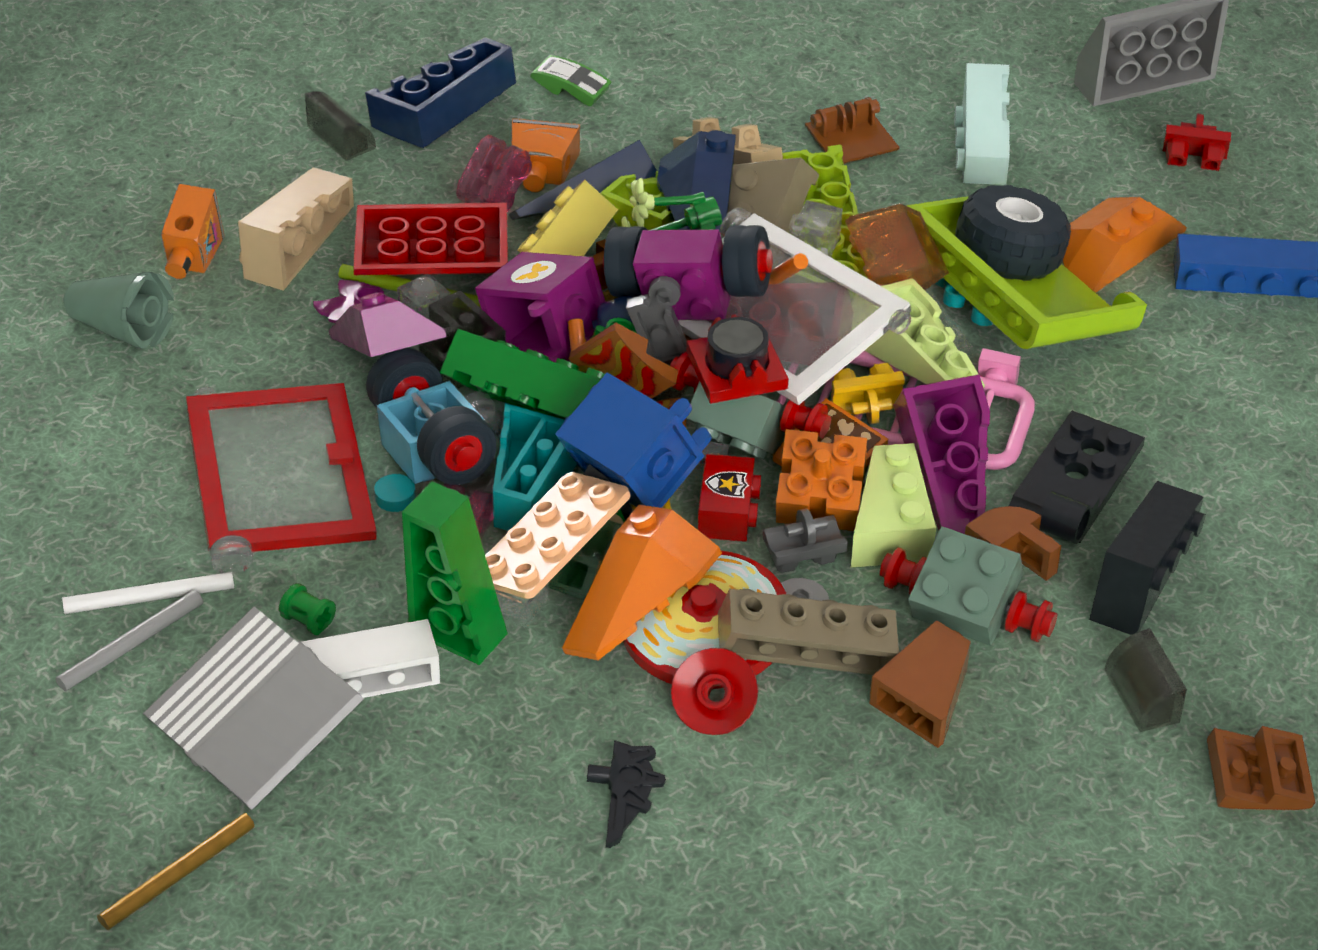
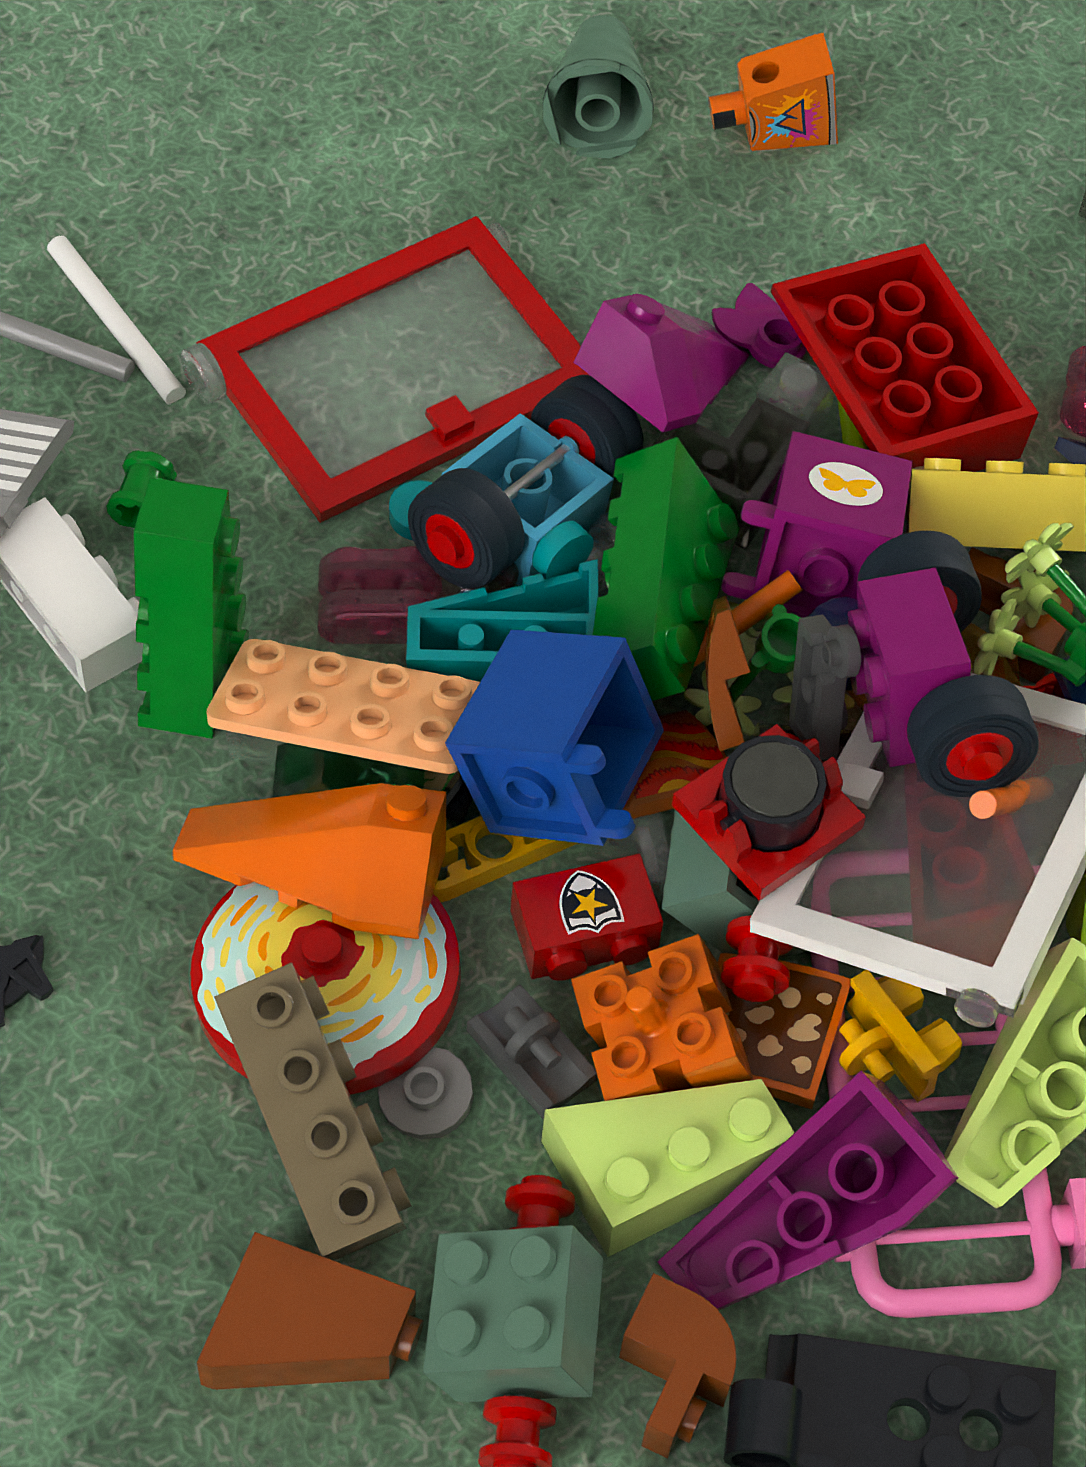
camera: 65 degrees right, 15 degrees up
(292, 226) = (874, 197): tan wedge -> none
(488, 410) = (562, 549): none -> teal tile
(699, 676) = (166, 1029): red dish -> none

